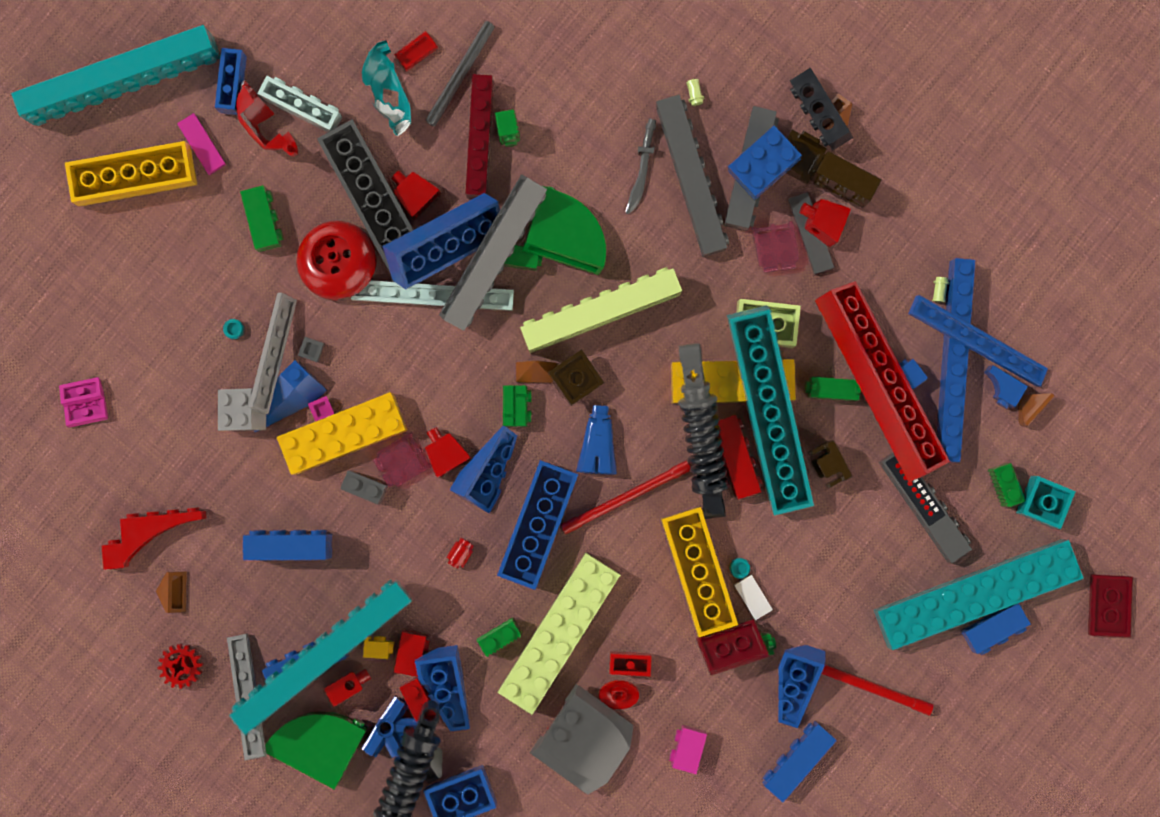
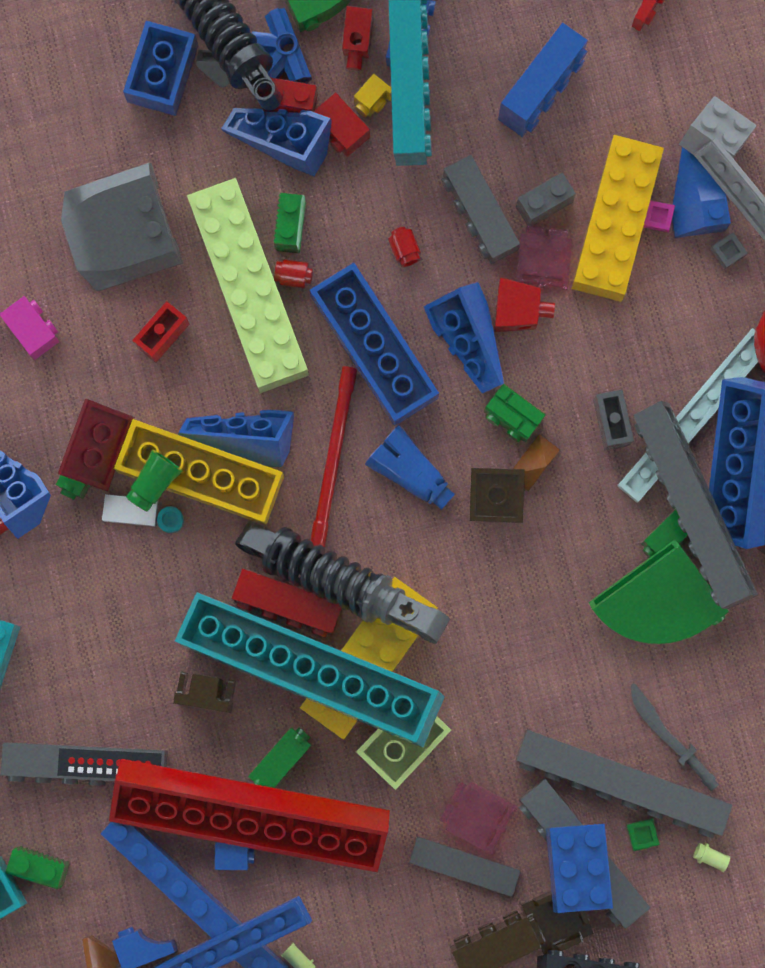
camera: 130 degrees right, 5 degrees down
(400, 524) = (480, 209): none -> dark grey brick
(474, 341) = (613, 420): none -> dark grey brick
(530, 610) = (293, 273): none -> red brick
(601, 310) = (548, 574): yellowish green brick -> none
(619, 694) = (138, 298): red dish -> none
(653, 557) = (255, 438): none -> blue wedge
(712, 142) = (642, 834): none -> green tile
(728, 593) = (153, 480): none -> green plant
(825, 220) = (467, 891): red torso -> none

